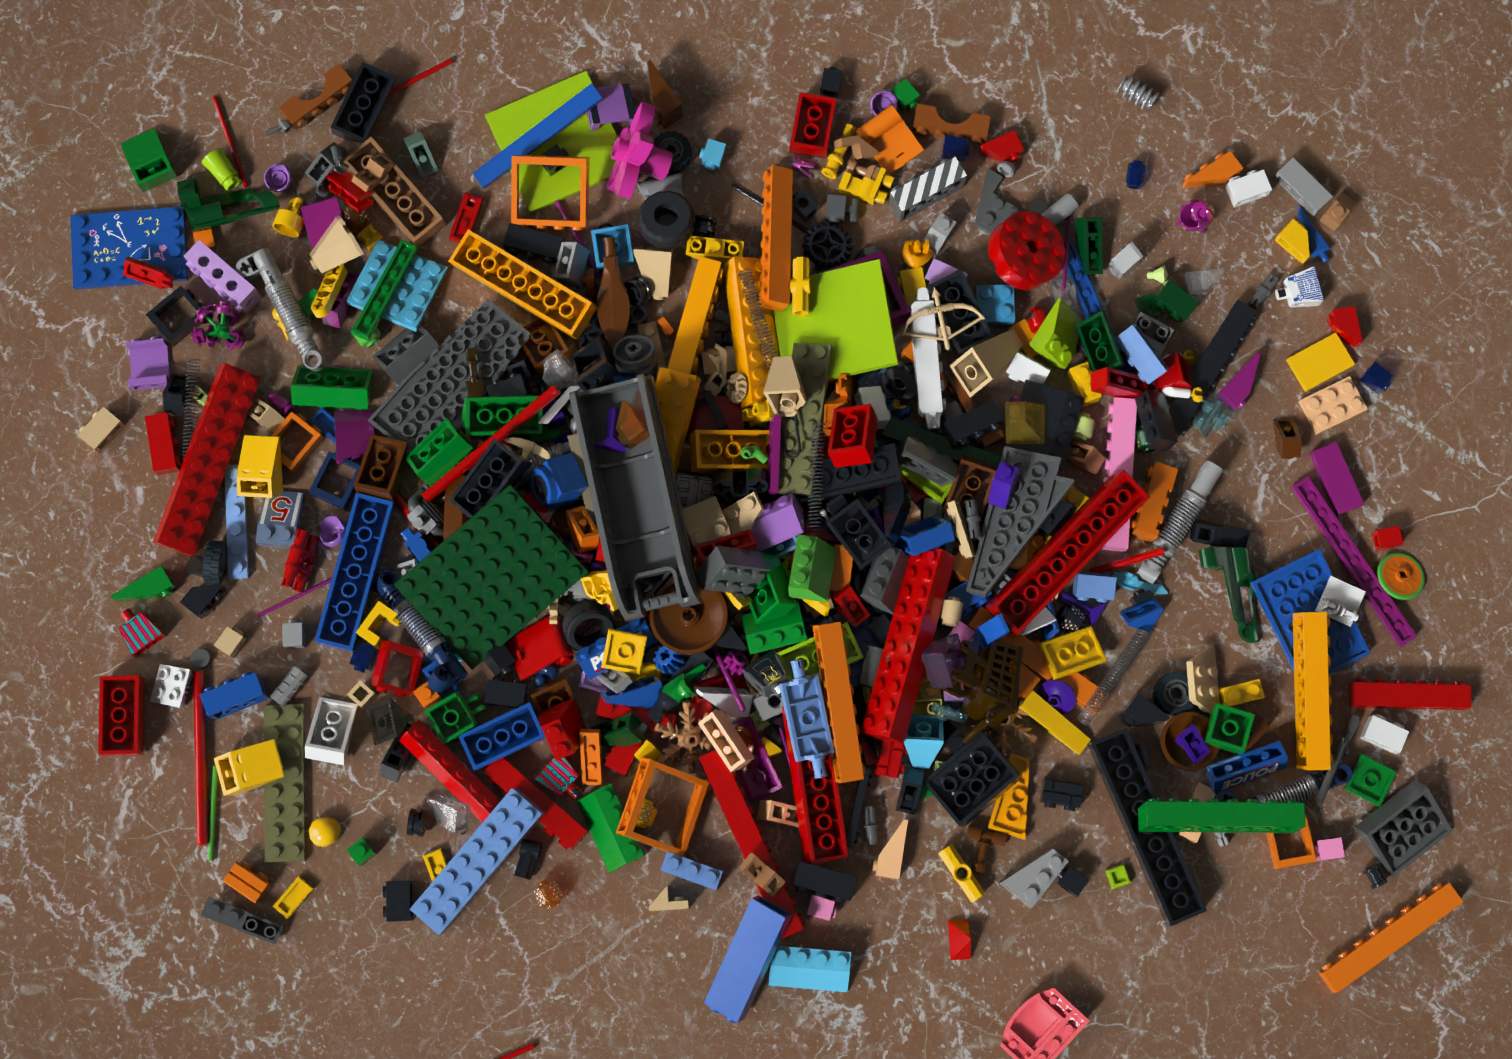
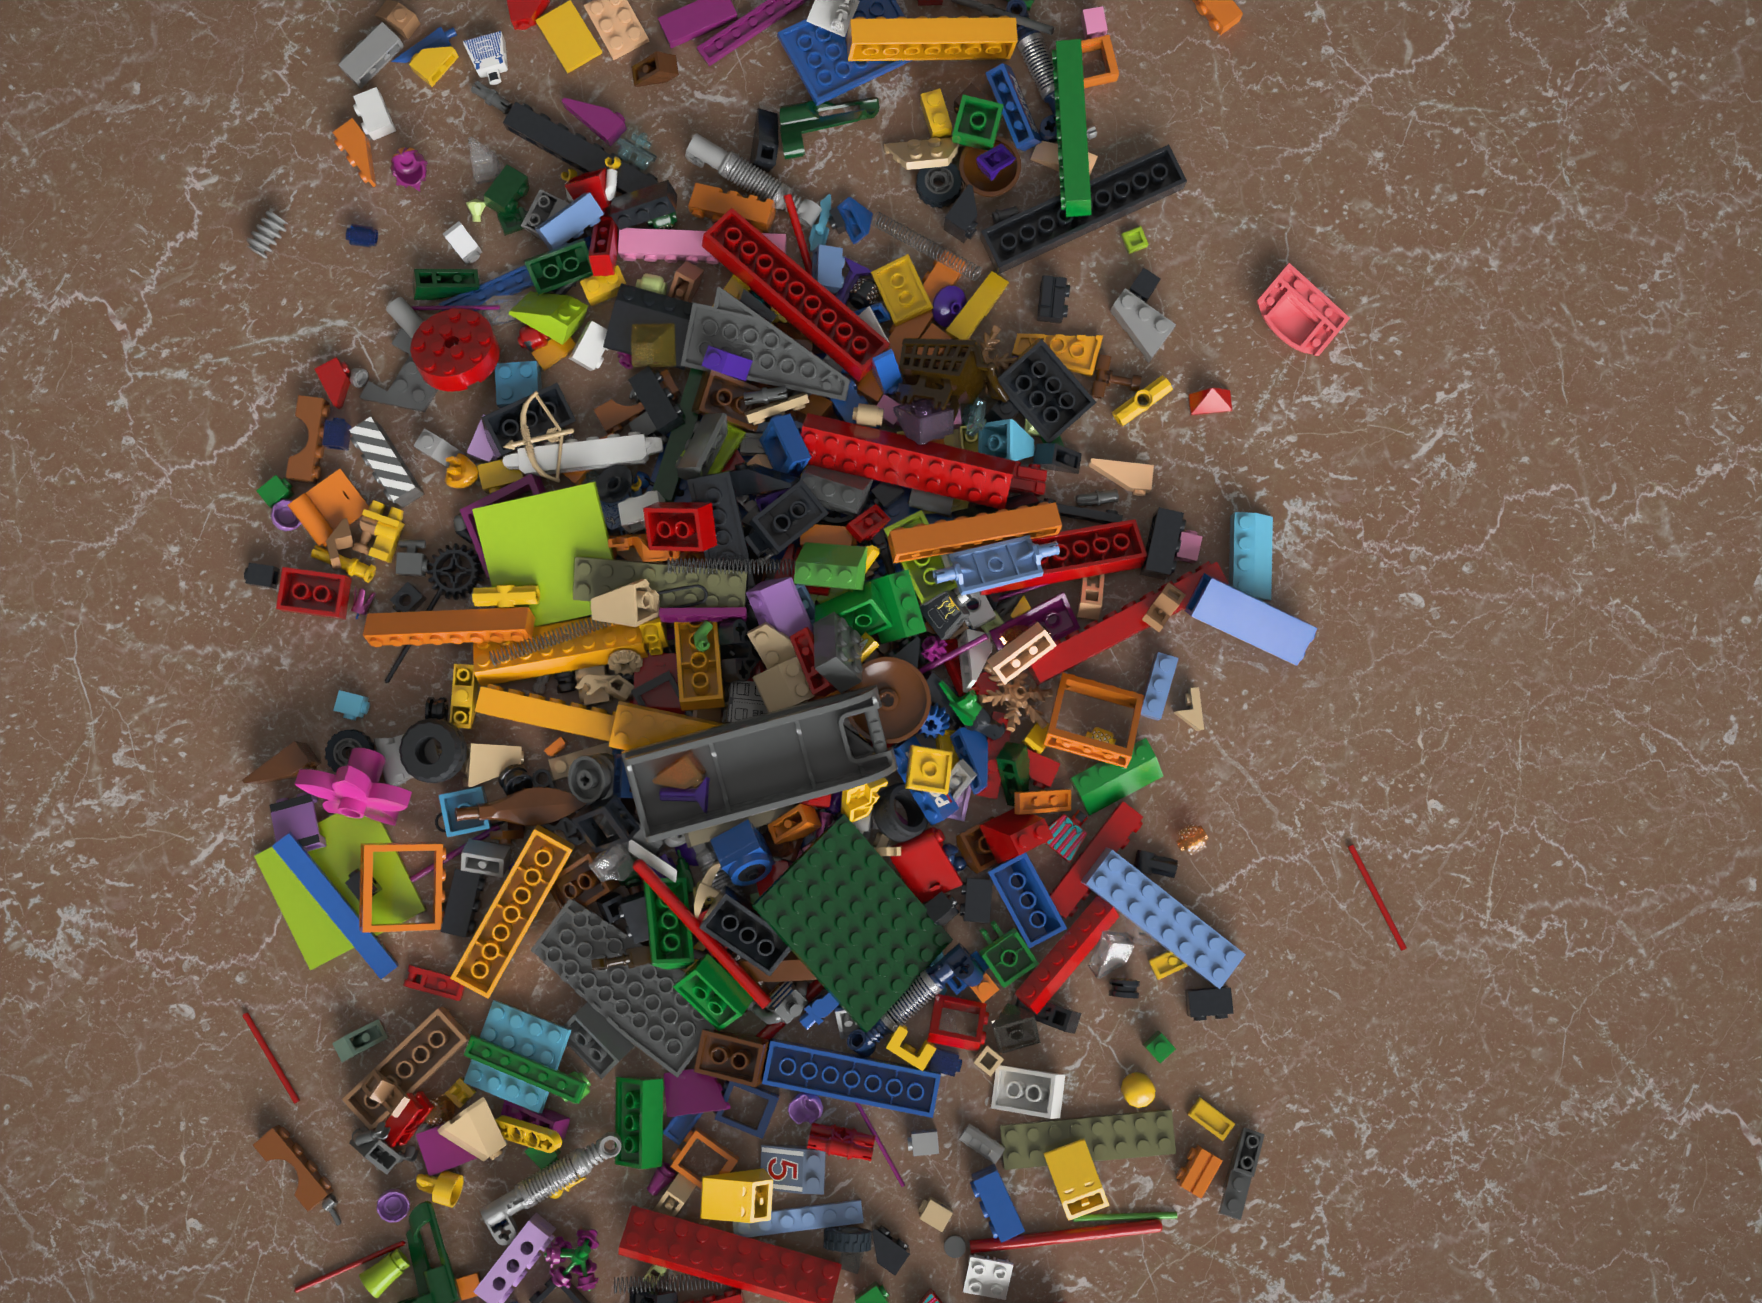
camera: 90 degrees left, 5 degrees up
(362, 103) = (301, 1112): black slope -> none
(985, 361) = (586, 389): tan slope -> none

